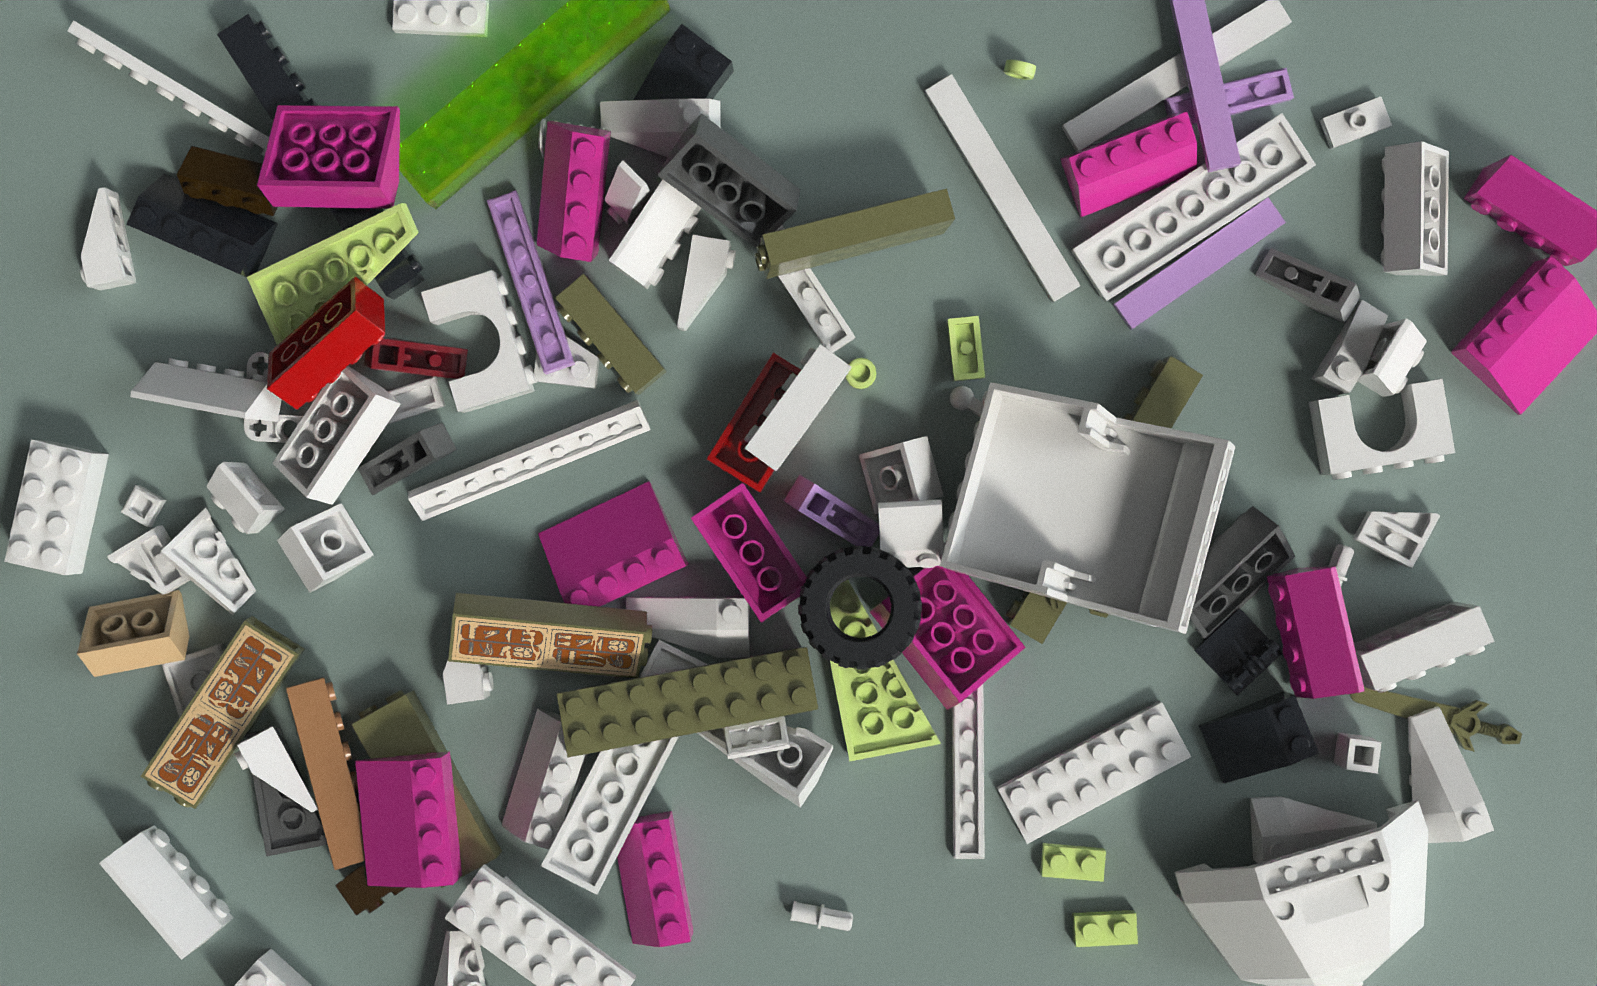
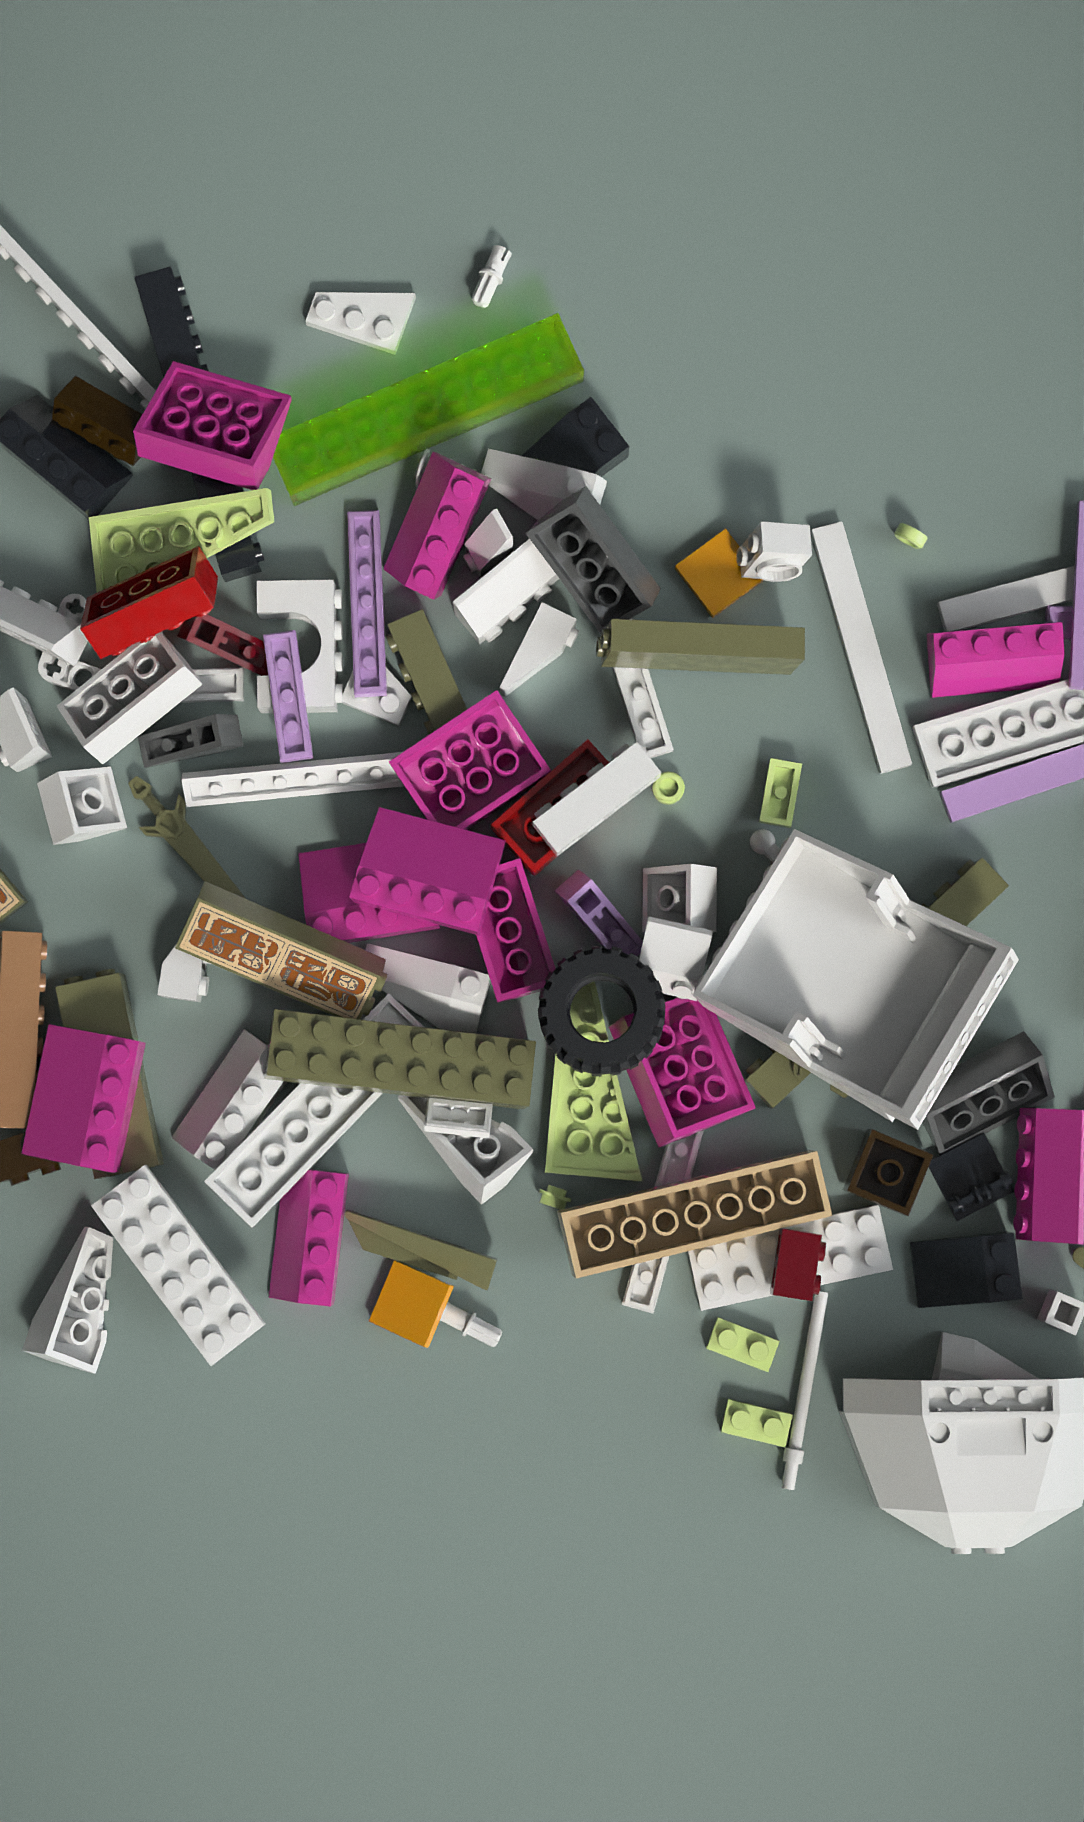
camera: 20 degrees right, 5 degrees down
(419, 545) = (177, 832): none -> olive sword
(482, 393) = (288, 696): none -> lavender tile
(660, 521) = (427, 871): none -> dark pink slope
(671, 410) = (471, 765): none -> dark pink slope
(758, 862) = (422, 1250): none -> olive wedge
(763, 914) = (411, 1303): none -> light orange tile
(850, 157) = (714, 574): none -> light orange tile
(864, 781) = (554, 1197): none -> yellowish green plate
(898, 122) = (775, 551): none -> white brick
(997, 762) = (694, 1213): none -> tan brick
(1104, 781) = (797, 1264): none -> dark red brick
(1146, 946) = (793, 1454): none -> white bar
(1163, 672) = (887, 1172): none -> dark brown brick

